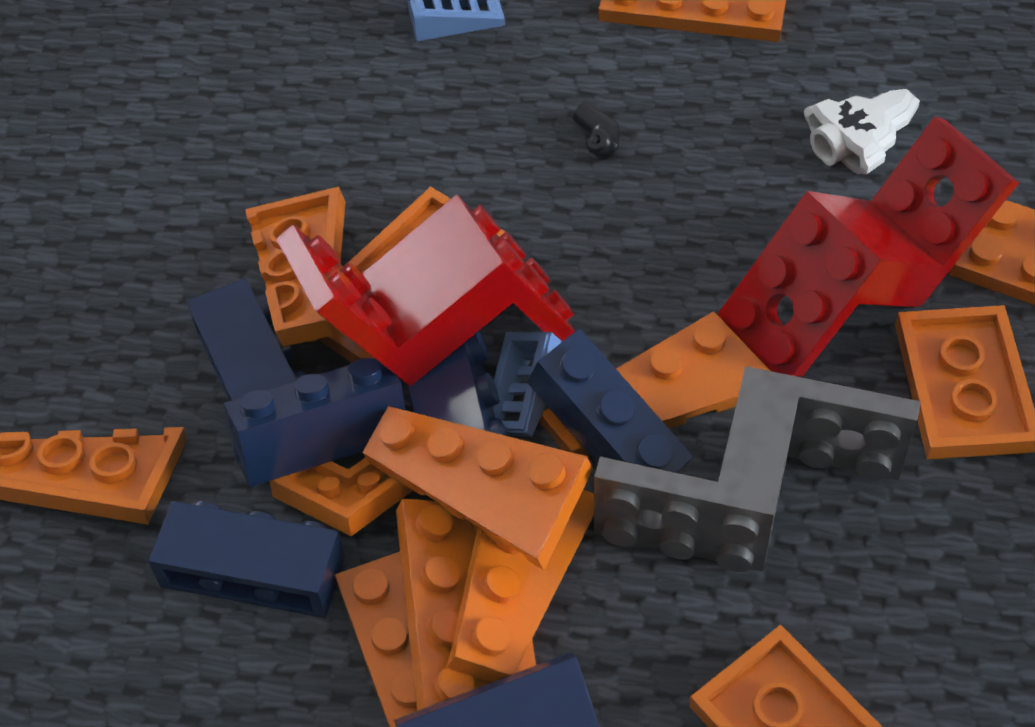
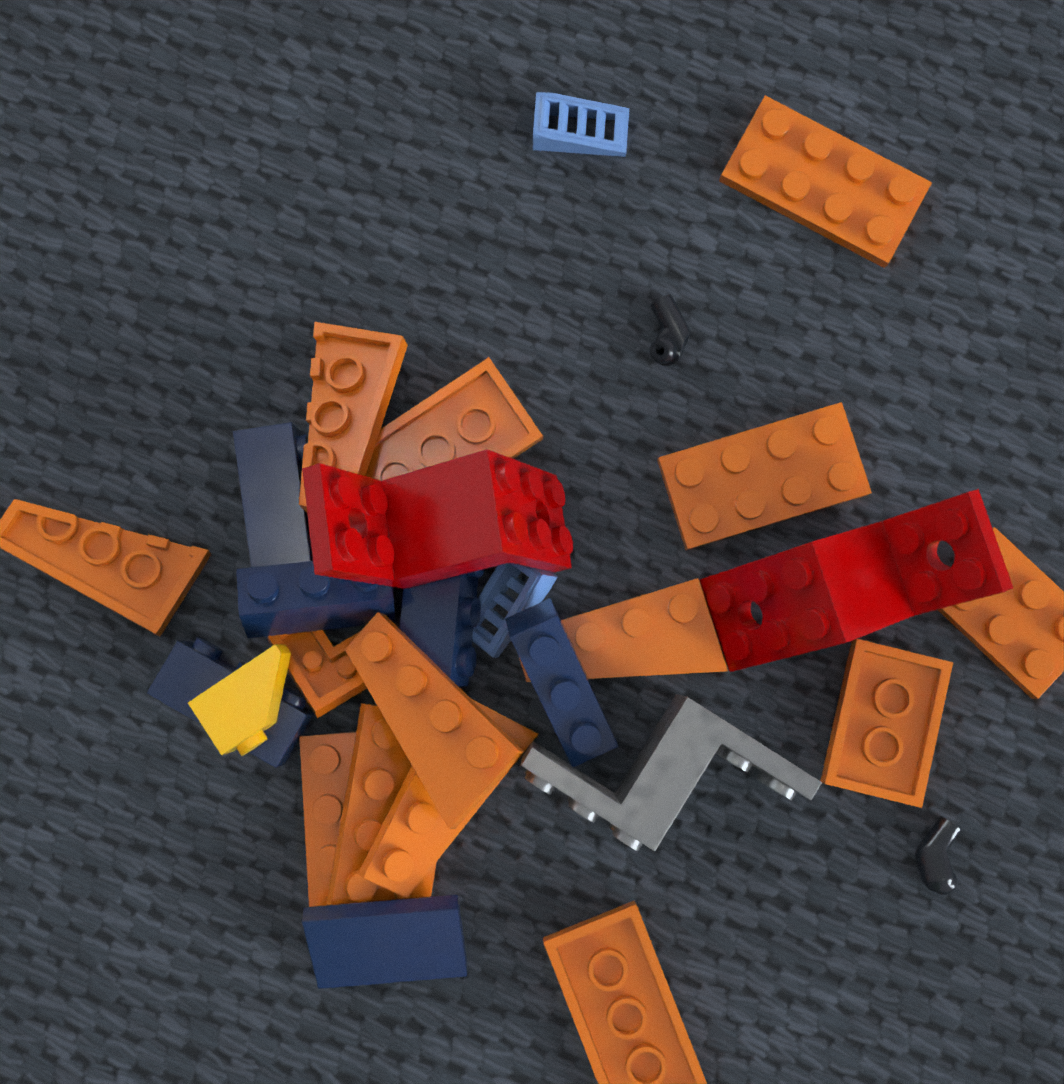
camera: 15 degrees right, 30 degrees up
(263, 519) = (244, 702): none -> yellow slope
(729, 219) = (764, 476): none -> orange plate
(859, 128) = (914, 411): white rock -> none

